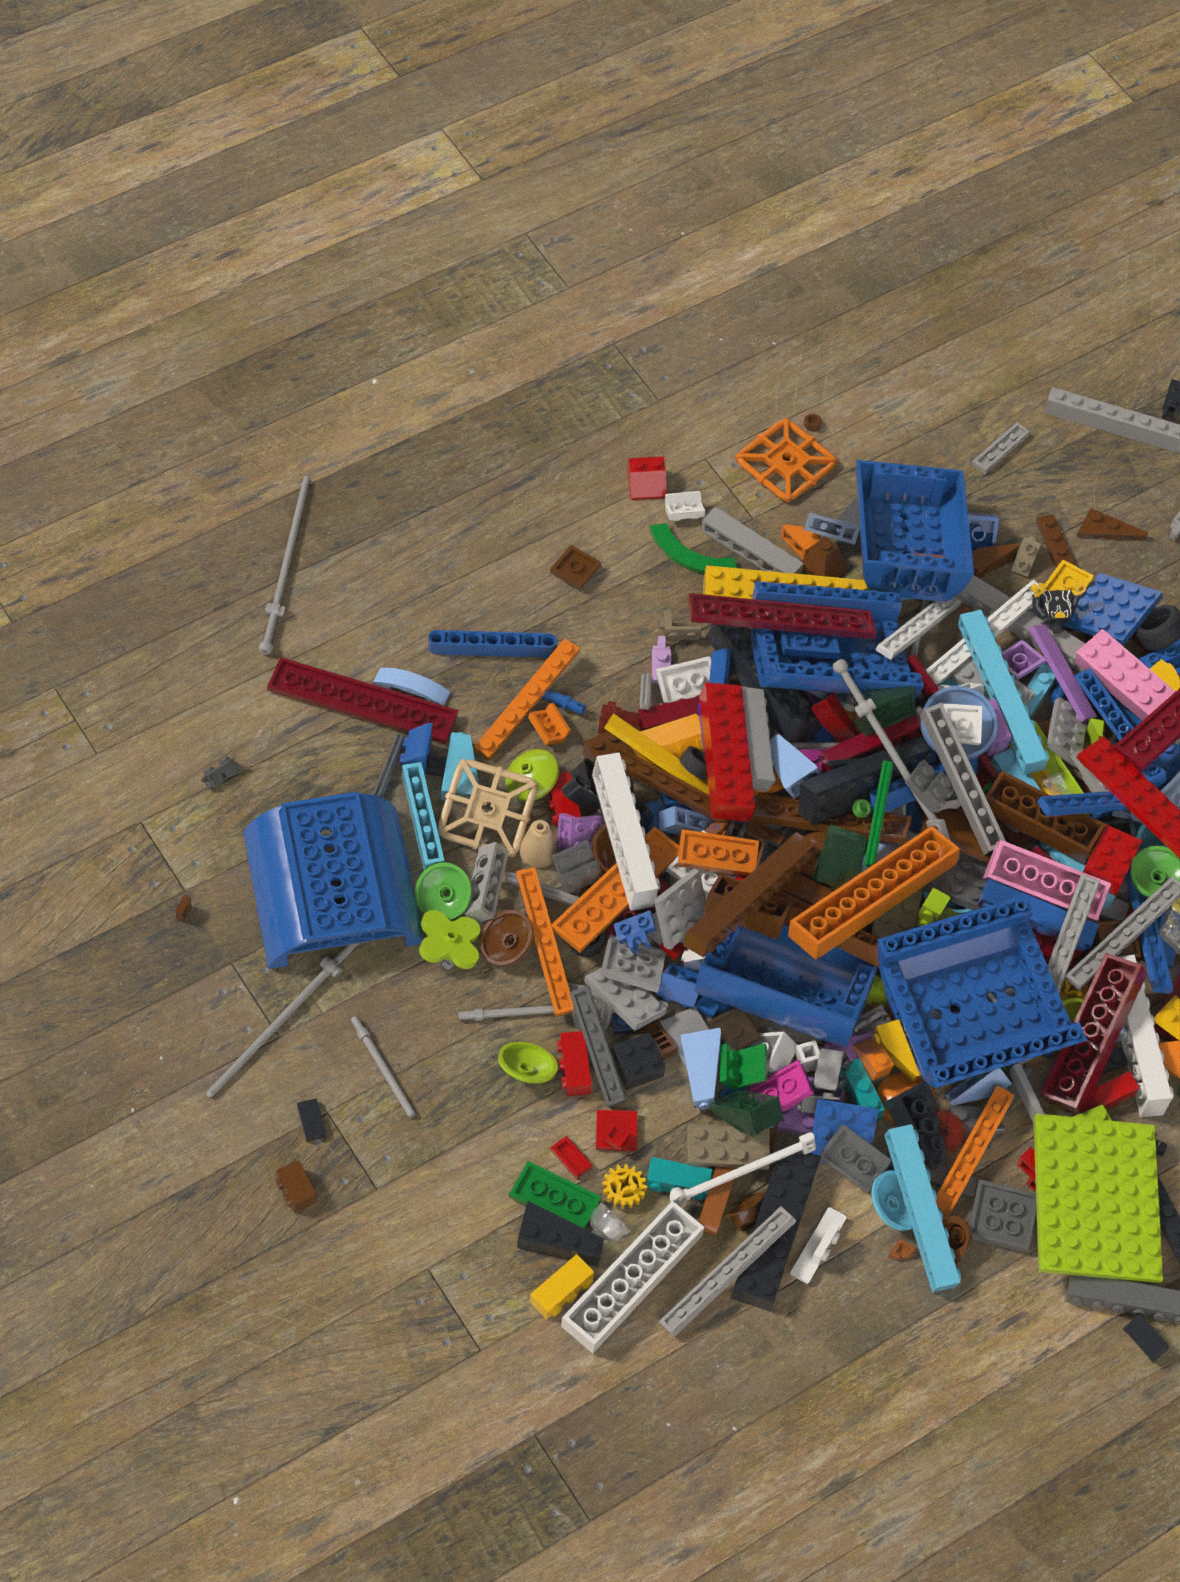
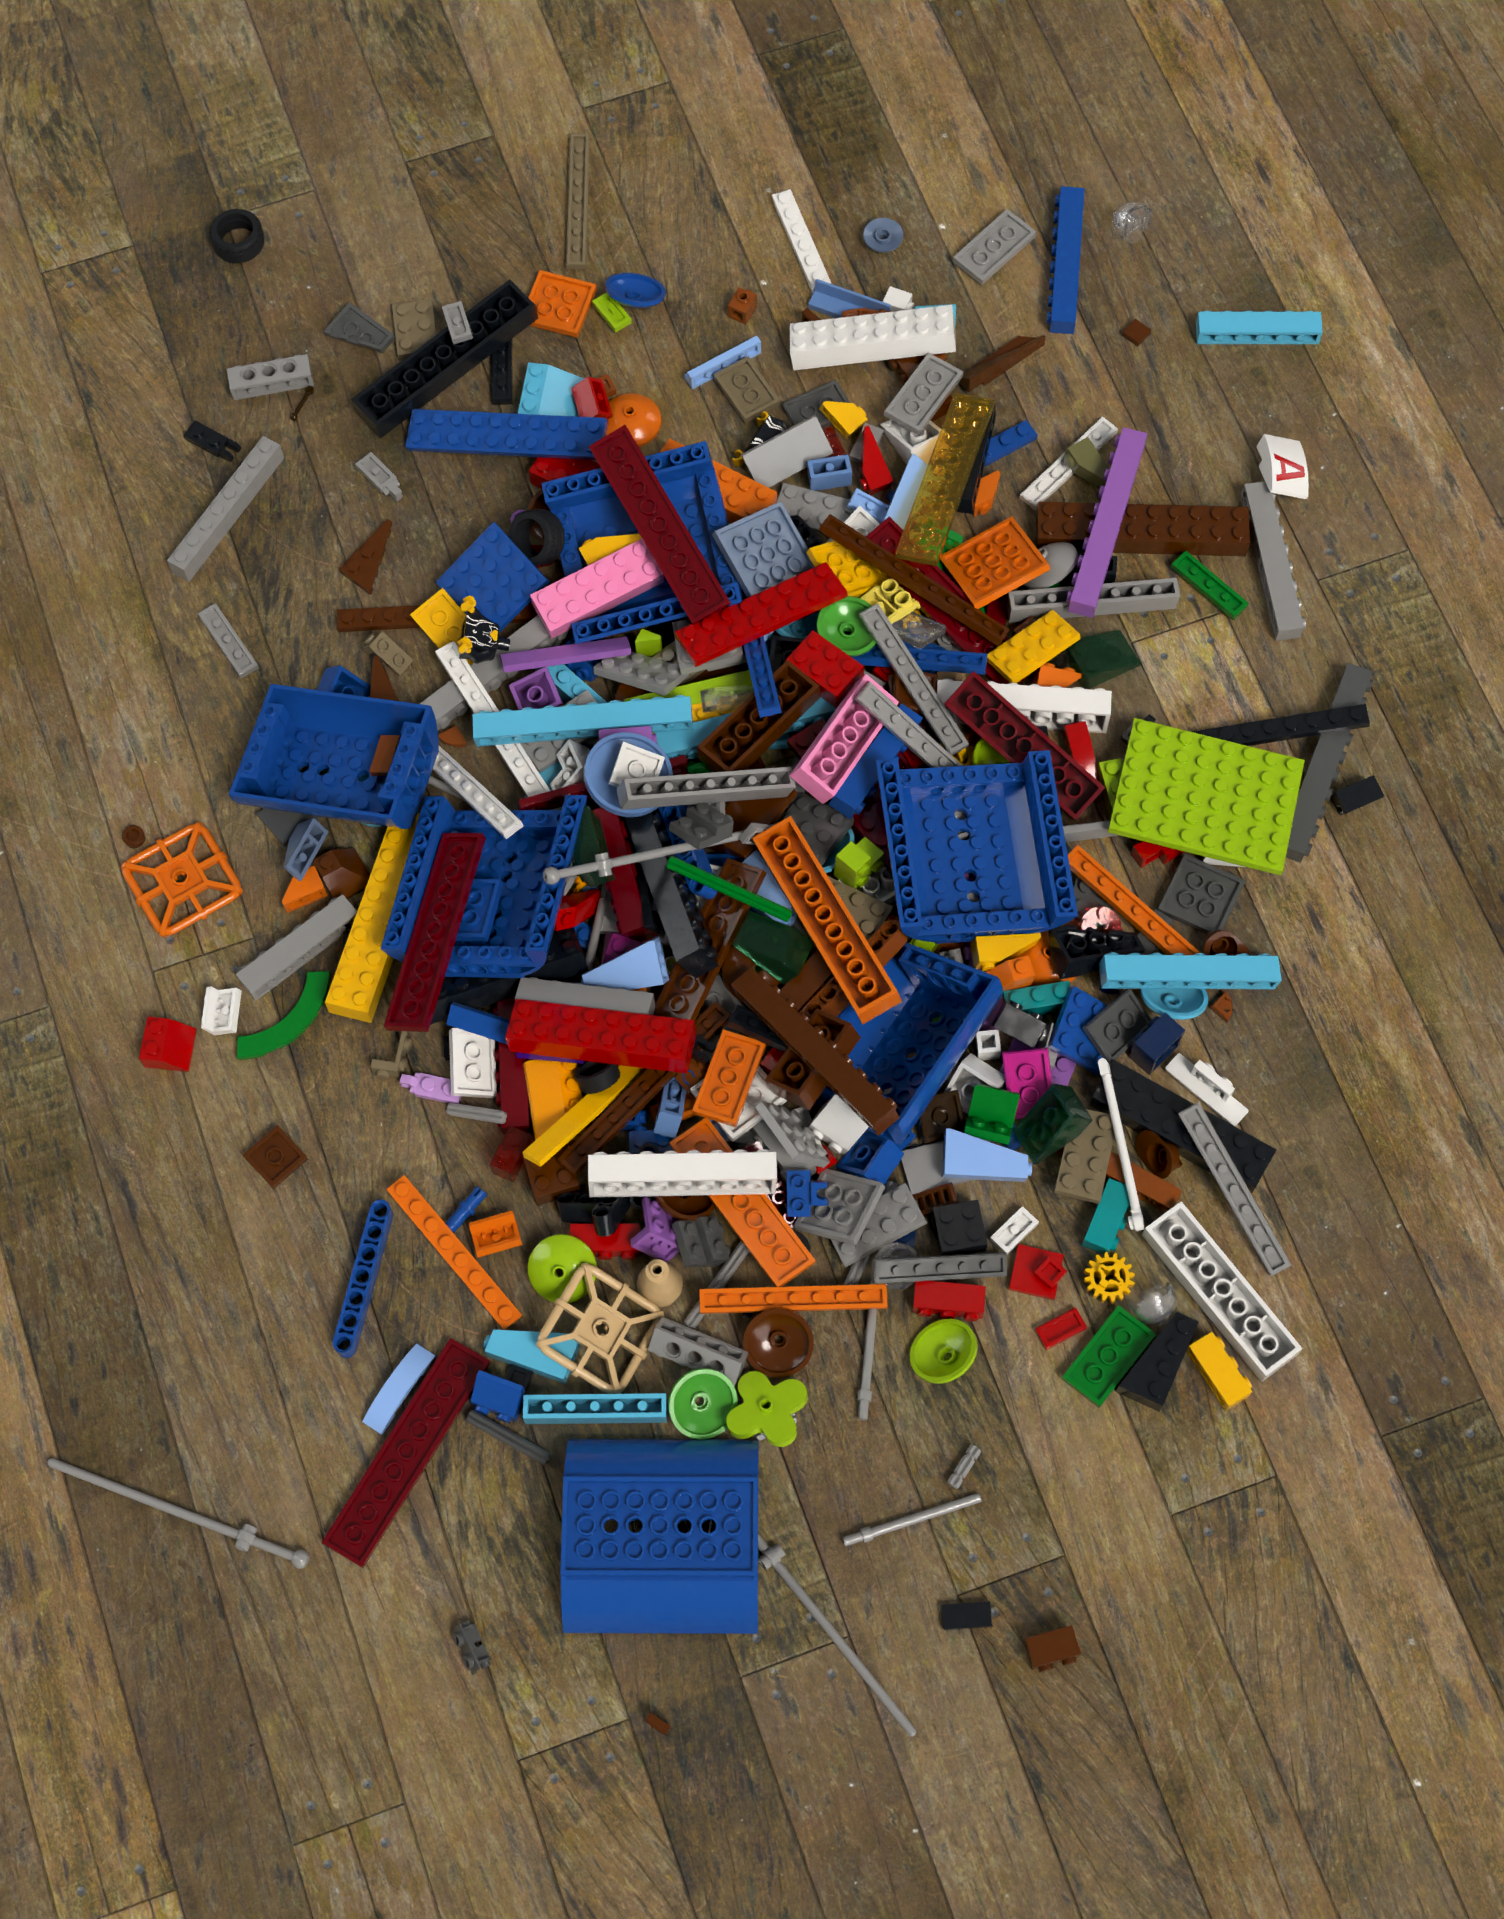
camera: 70 degrees left, 10 degrees up
(435, 1098) = (964, 1466): none -> light grey axle
(648, 1106) = (1014, 1230): none -> white plate
(847, 1191) = (1156, 1043): none -> dark blue brick
(861, 808) = (709, 907): bright green plate -> none

